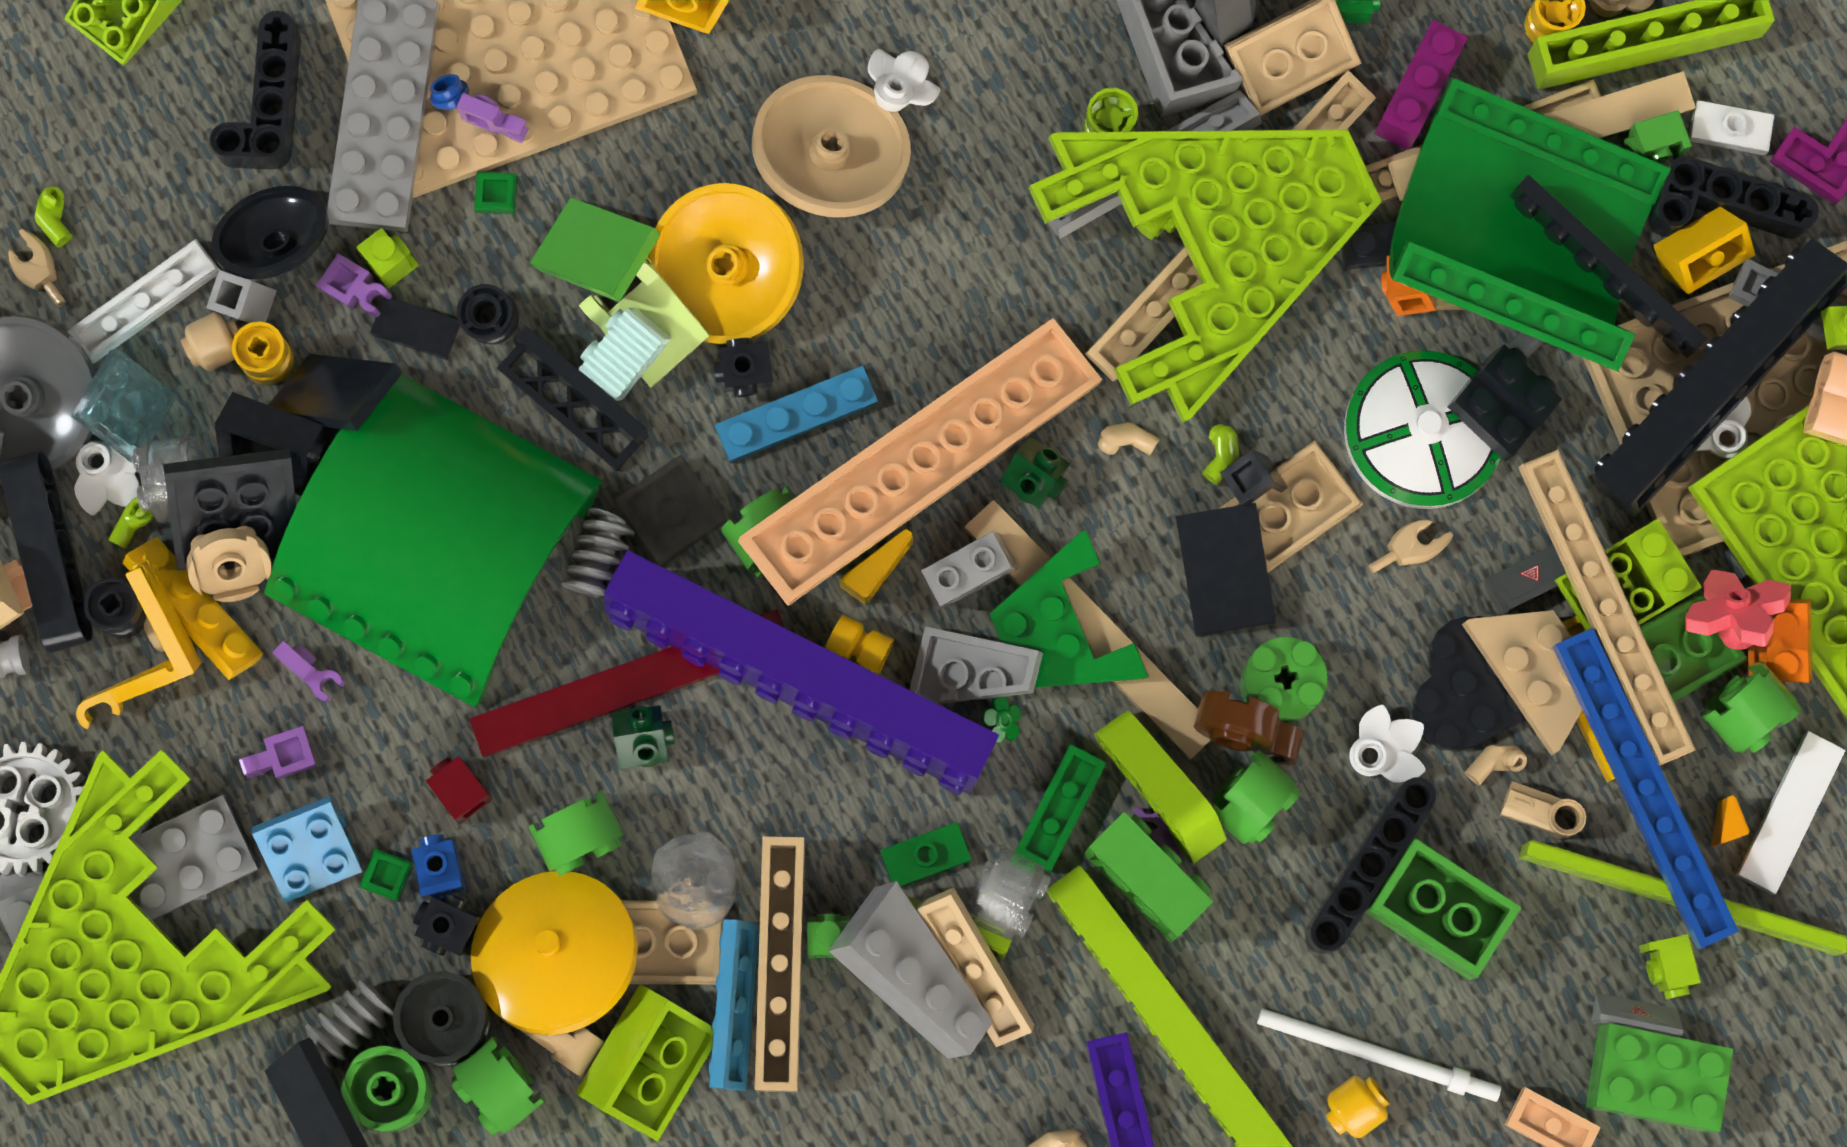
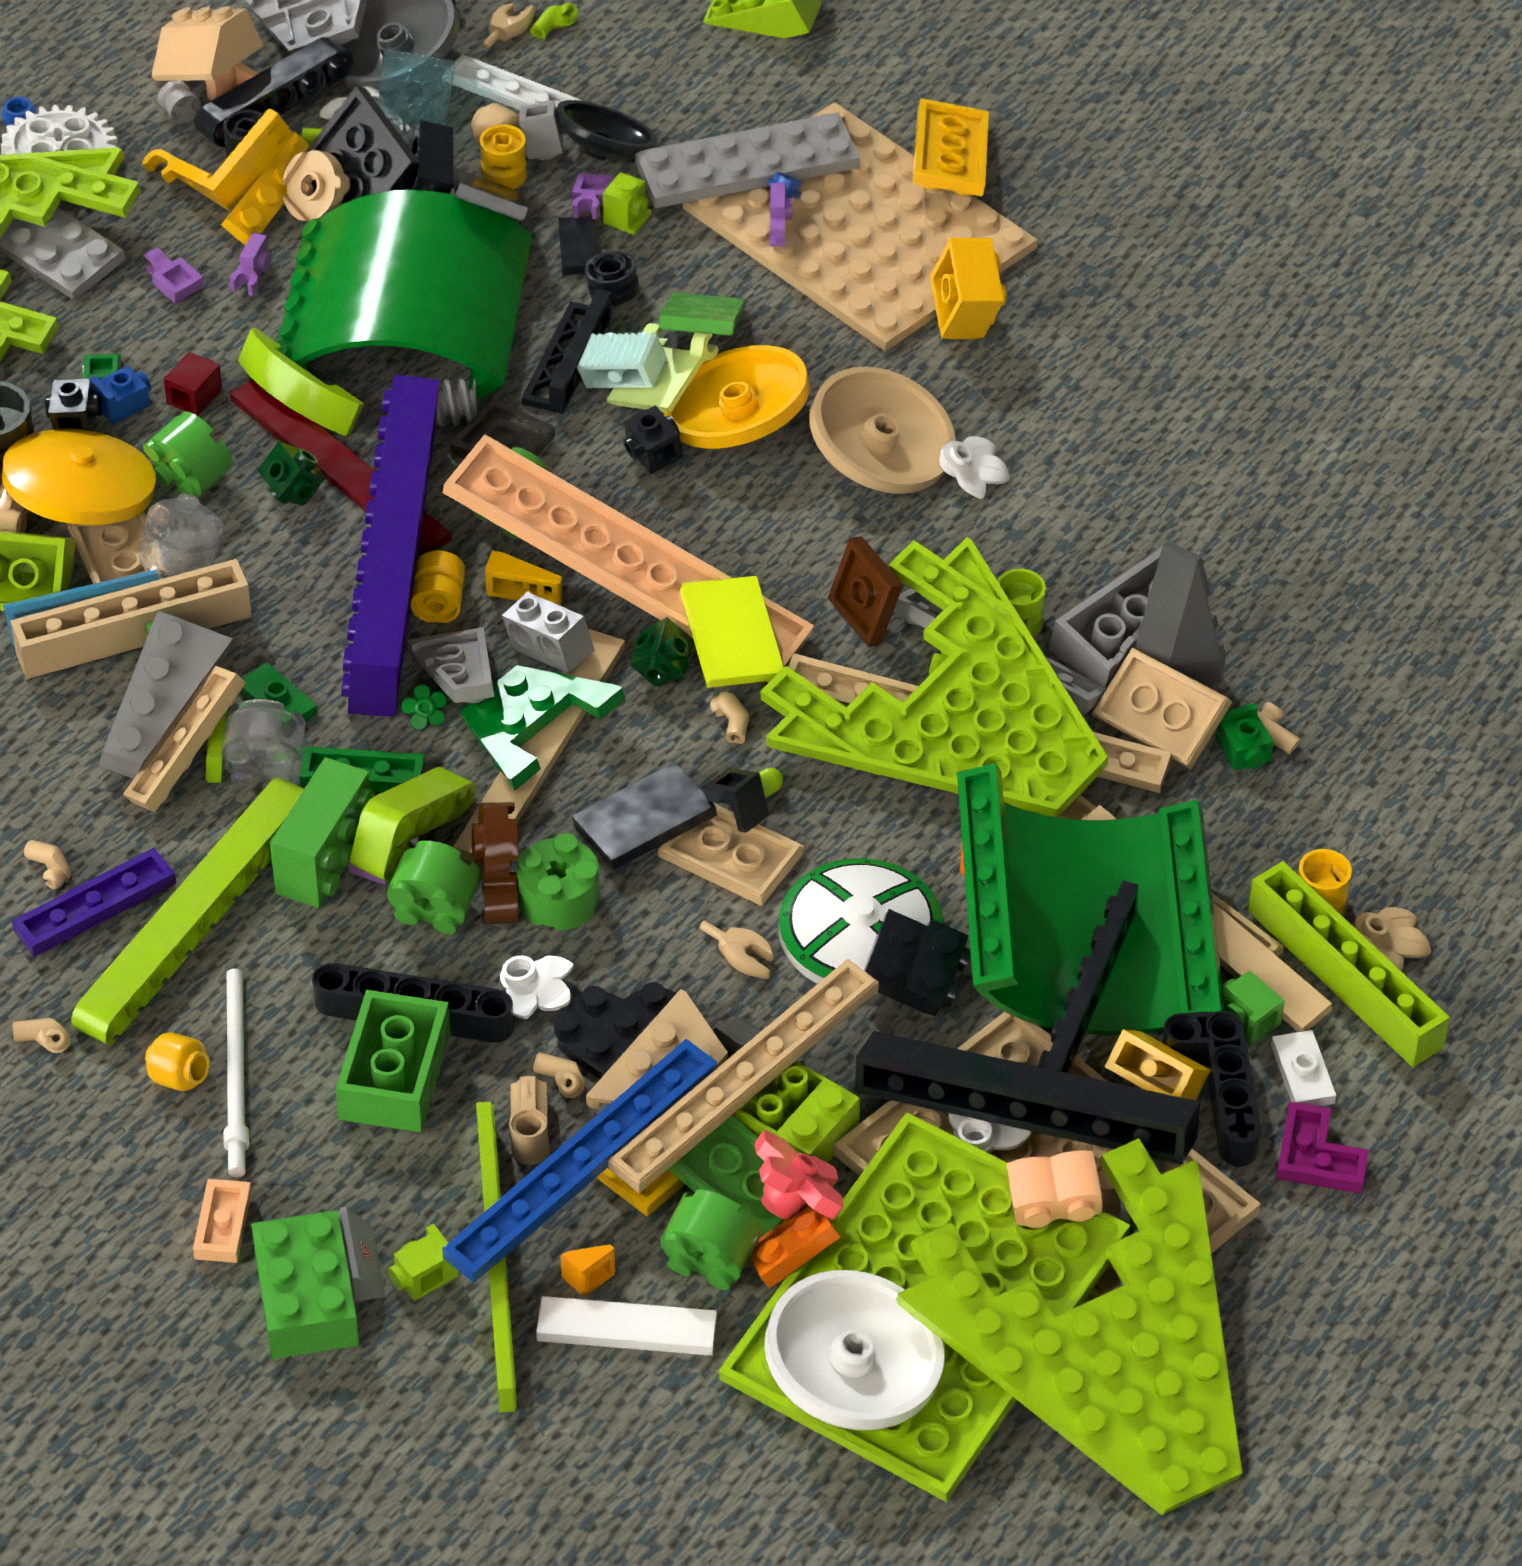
camera: 70 degrees right, 30 degrees down
(266, 92) = (721, 102): black beam -> none
(307, 849) = (101, 309): plate -> none
(495, 193) = (722, 256): green tile -> none
(512, 694) = (296, 387): none -> lime slope
(796, 414) = (633, 494): dark azure plate -> none
(1045, 253) = (865, 591): none -> reddish brown plate
(1047, 398) = (731, 631): none -> neon yellow tile
(1421, 85) = (1226, 807): magenta brick -> none

